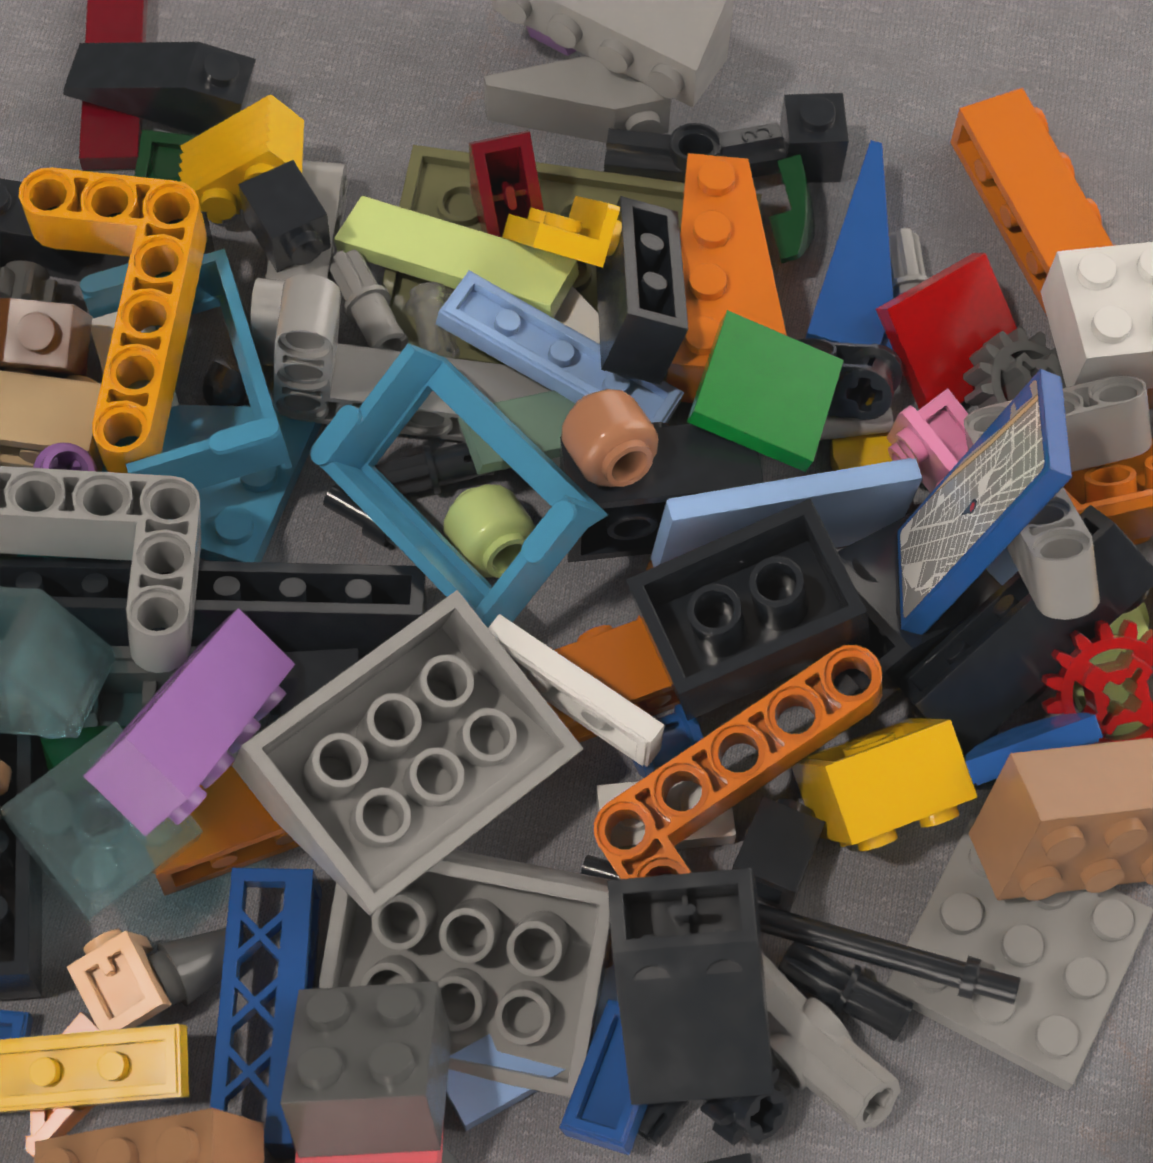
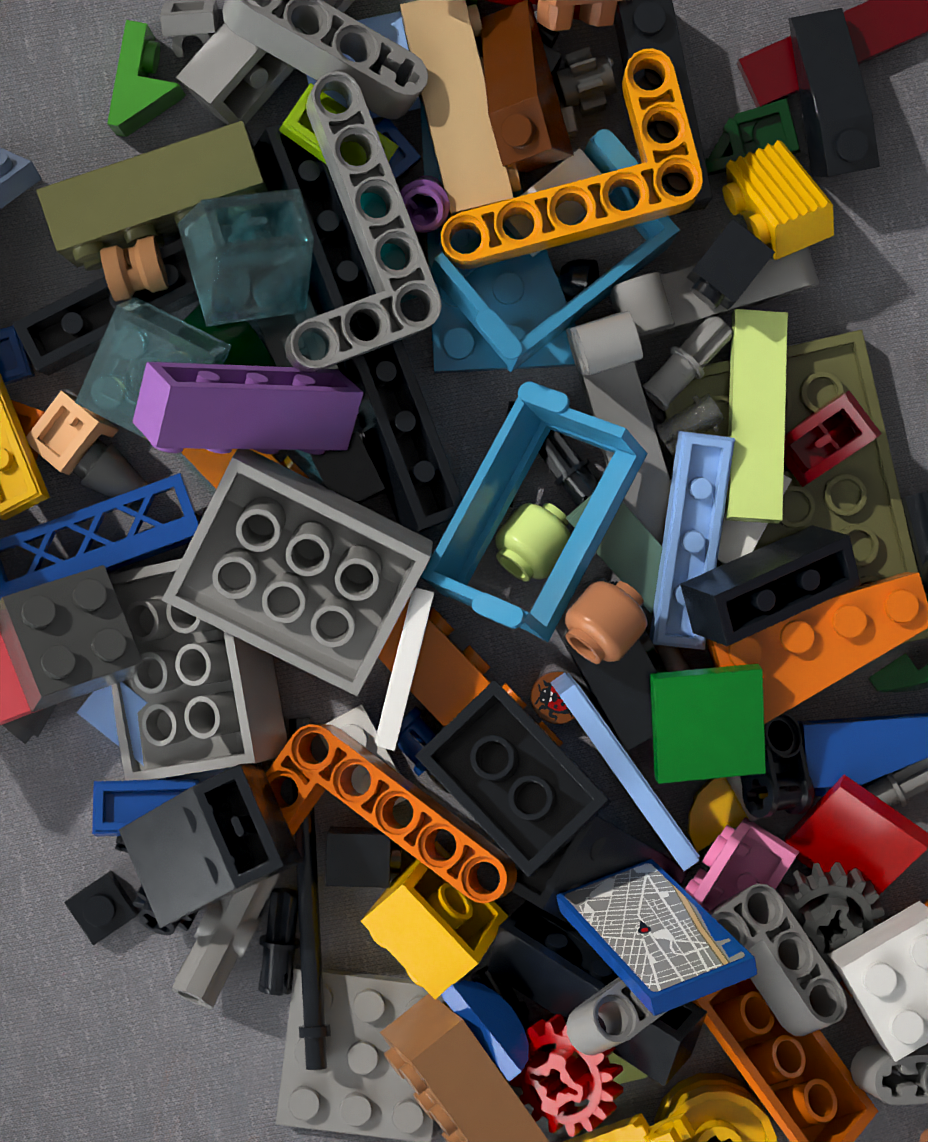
camera: 70 degrees right, 25 degrees up
(585, 236) = (795, 507): yellow bracket -> none

